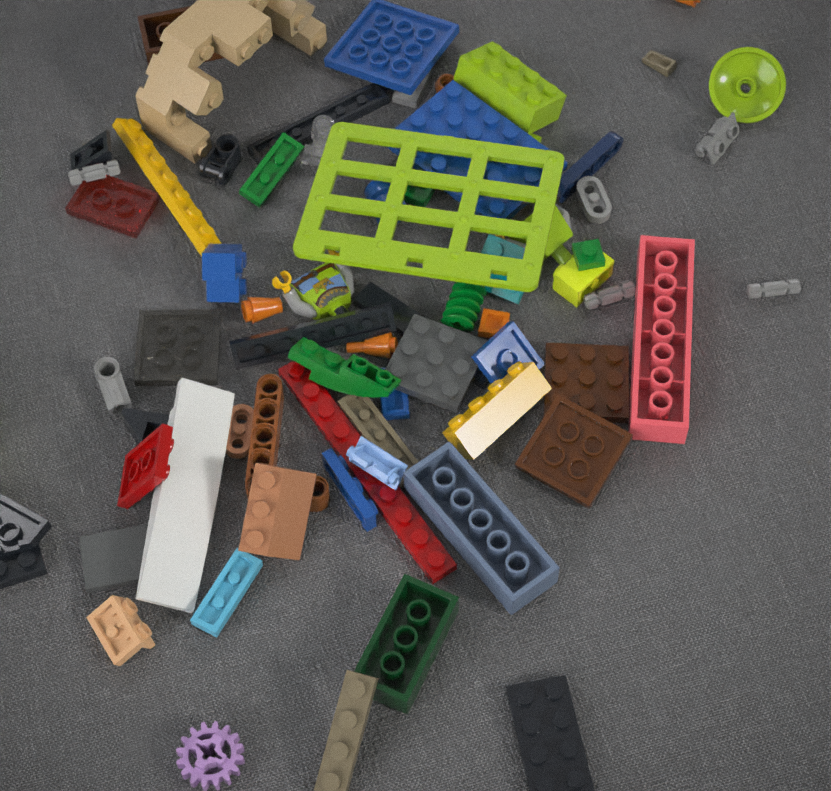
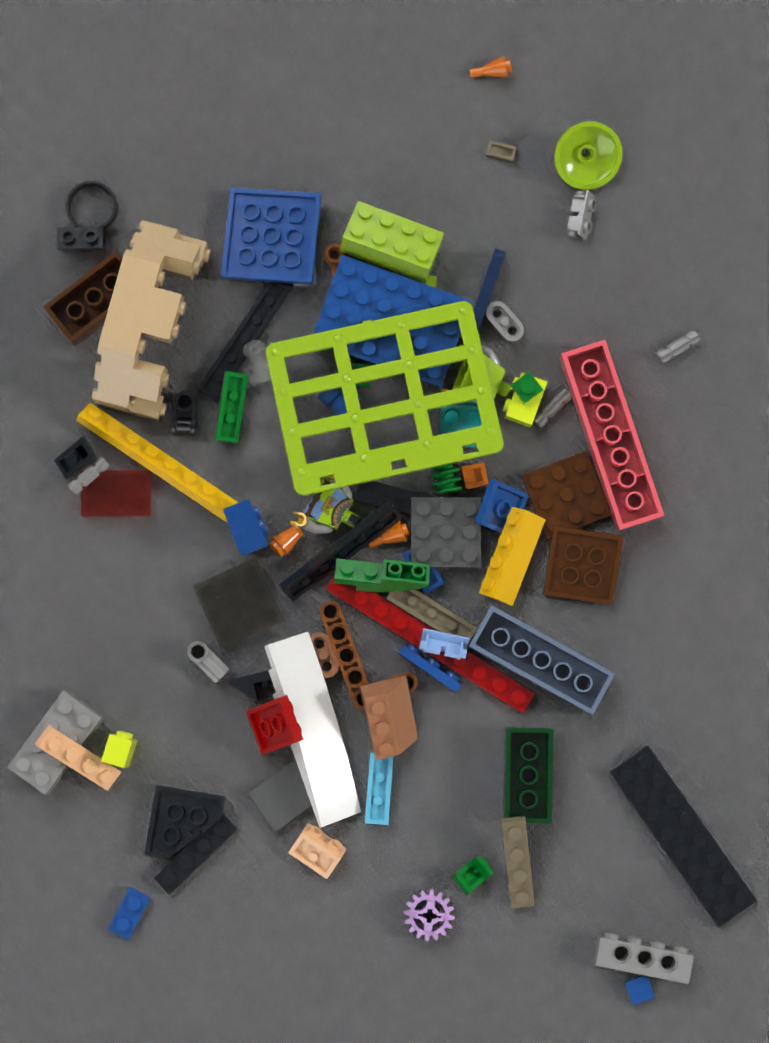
camera: 25 degrees left, 25 degrees up
(285, 731) = (472, 874): none -> green bracket

